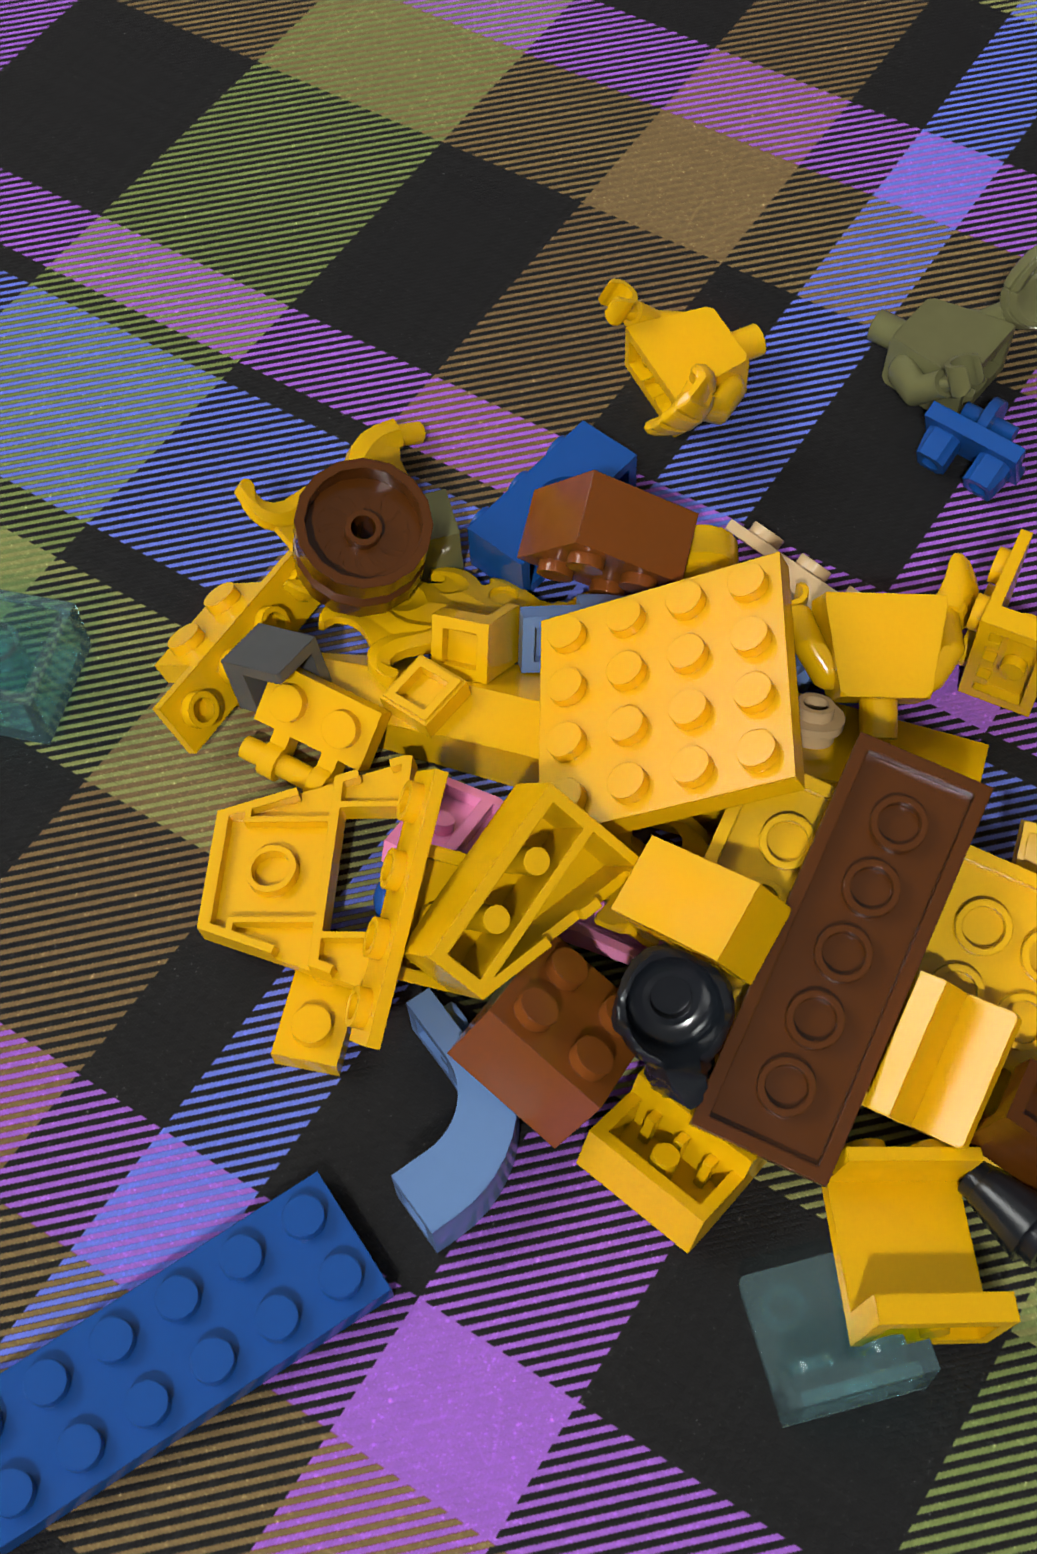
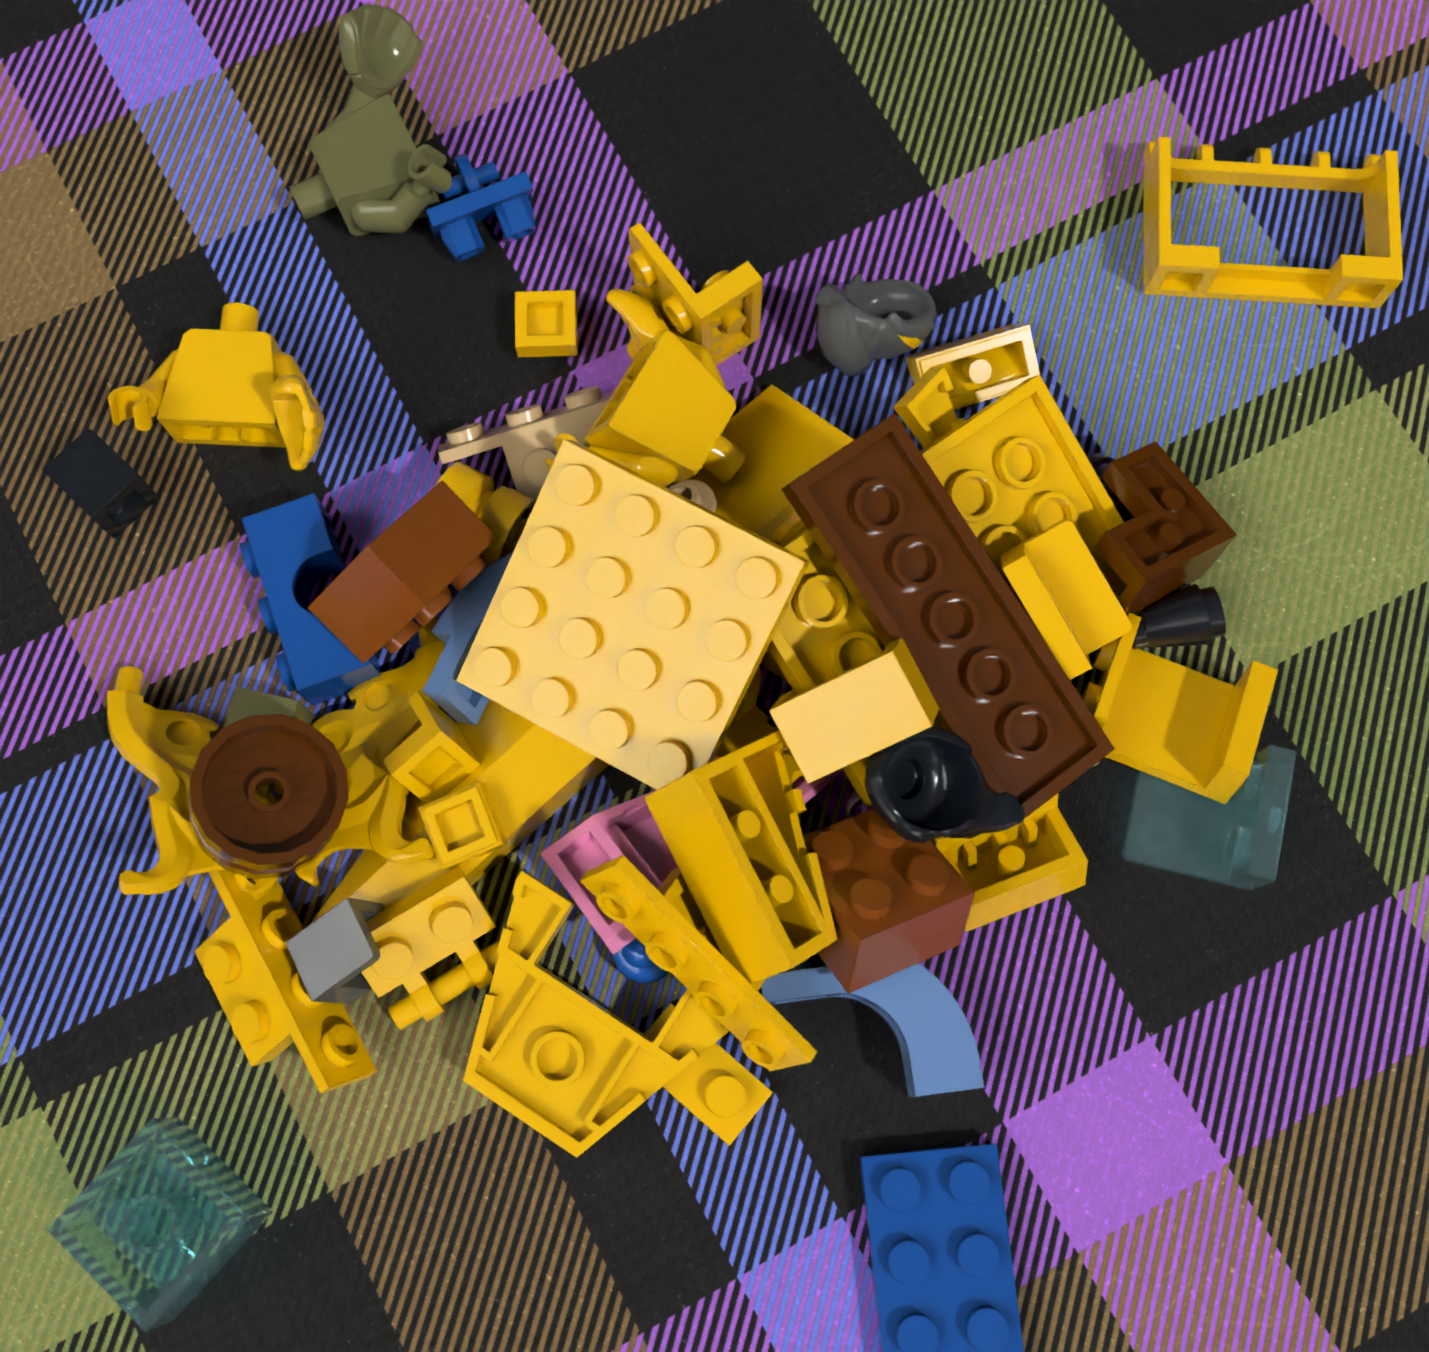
camera: 65 degrees left, 15 degrees up
(551, 330) = (101, 483): none -> black panel
(909, 545) = (546, 323): none -> yellow plate

